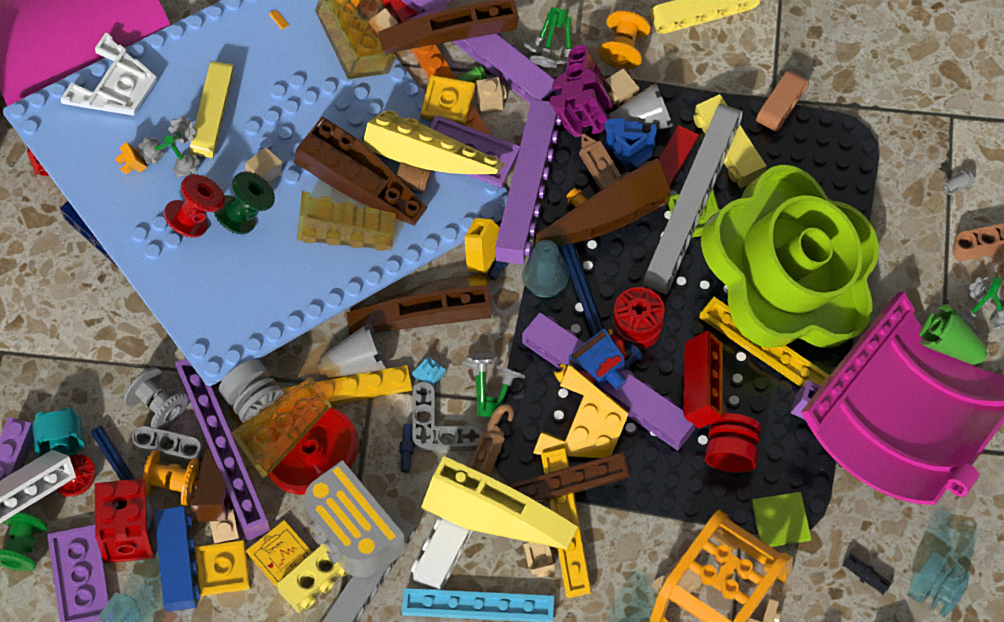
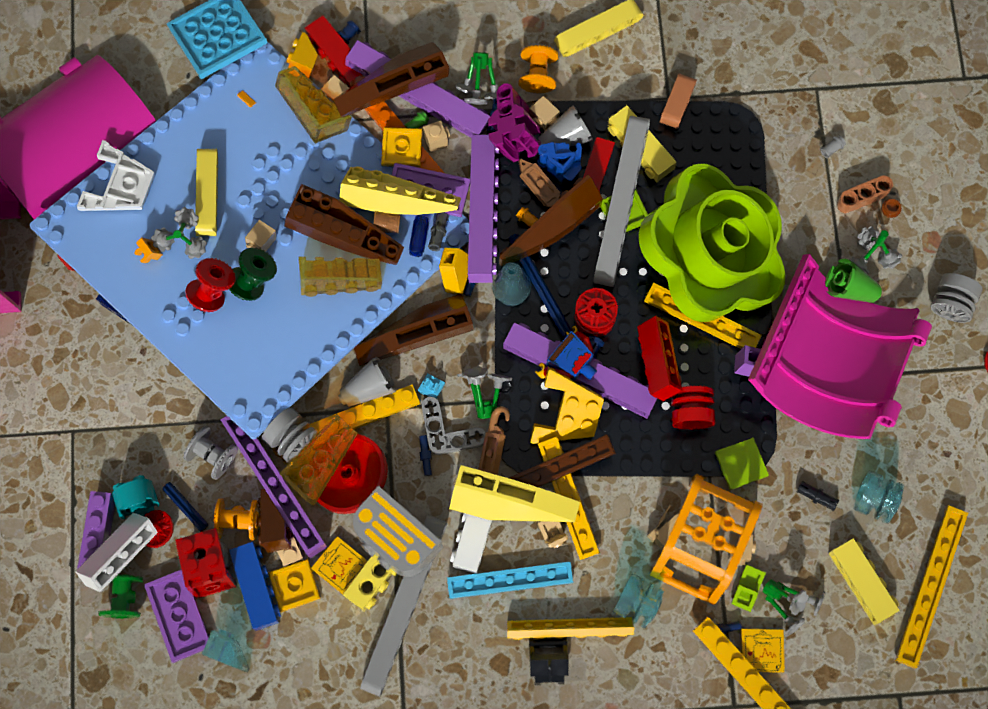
camera: 10 degrees left, 10 degrees up
(159, 438) = (219, 486): light grey beam -> none
(447, 200) = (418, 236): none -> clear blue piece
(471, 199) = (438, 231): none -> dark grey pin

